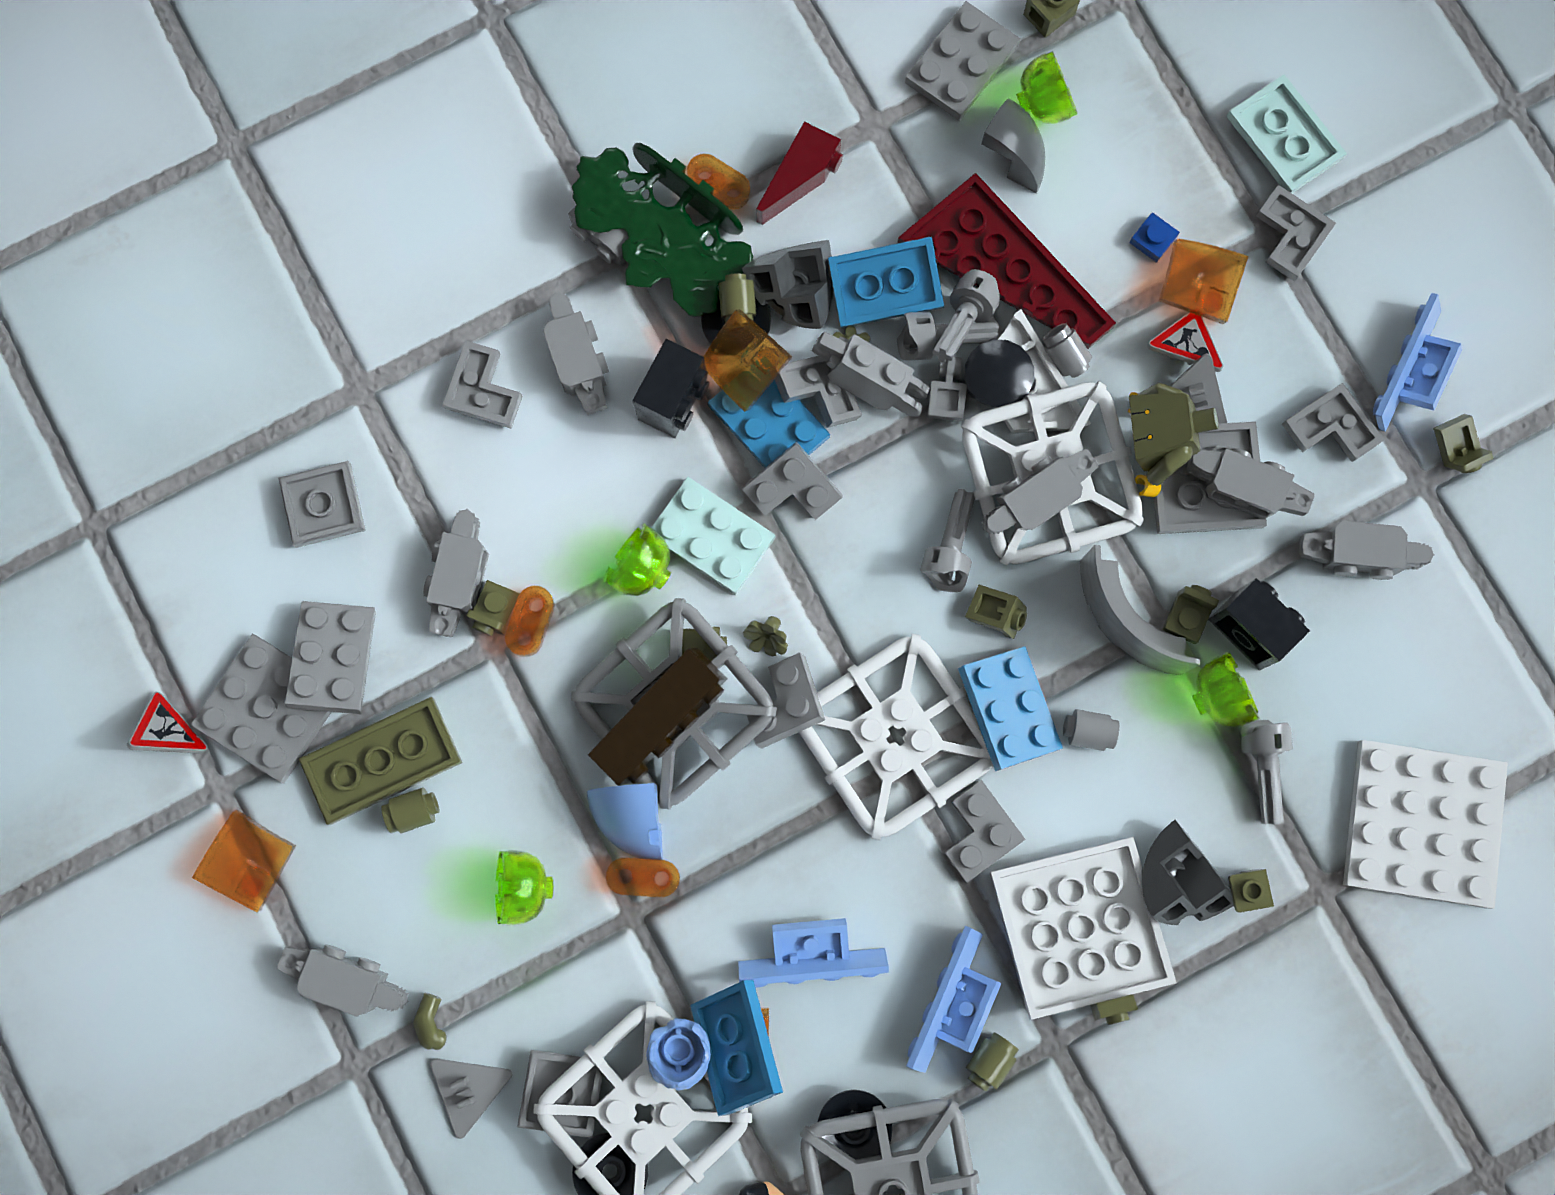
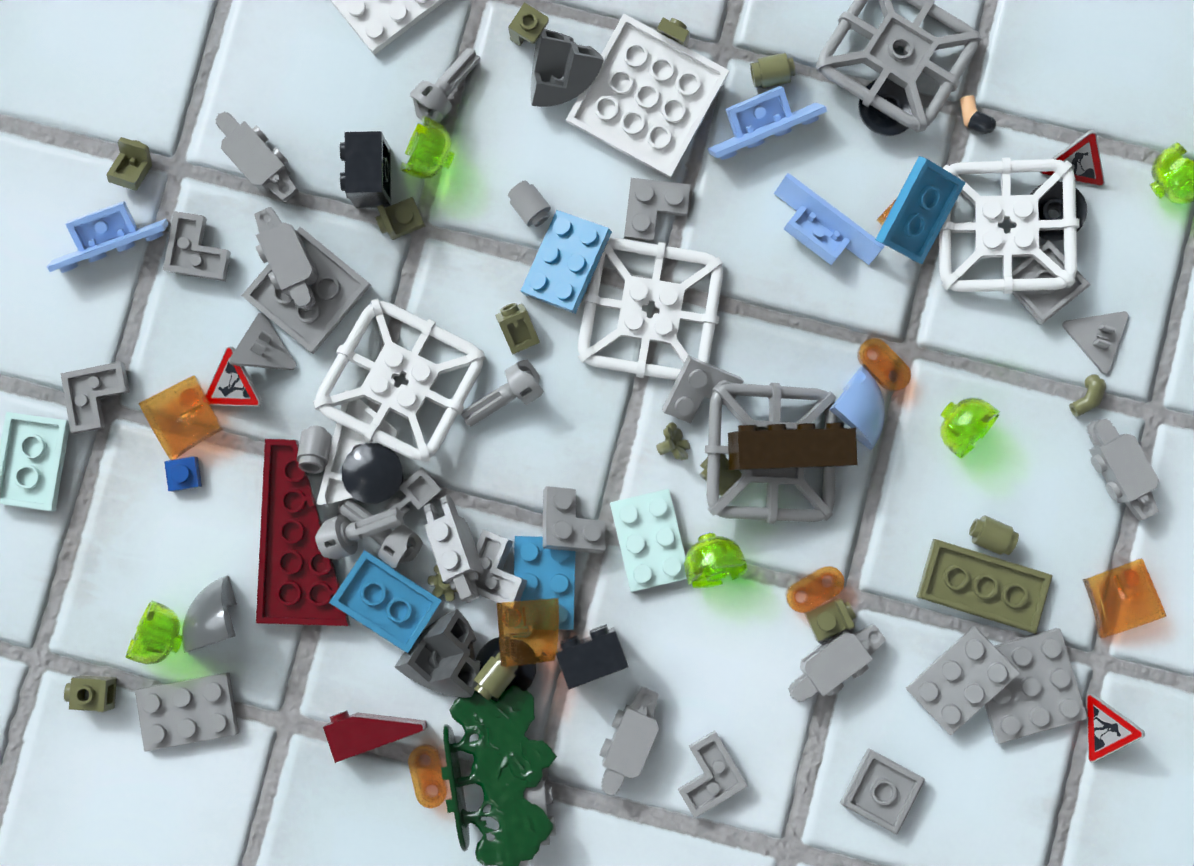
camera: 140 degrees left, 5 degrees up
(678, 1054) = (958, 237): light blue hair -> none
(1042, 494) = (423, 369): light grey hinge -> none
(1121, 622) = (446, 248): light grey panel -> none
(1165, 432) = (307, 336): olive torso -> none

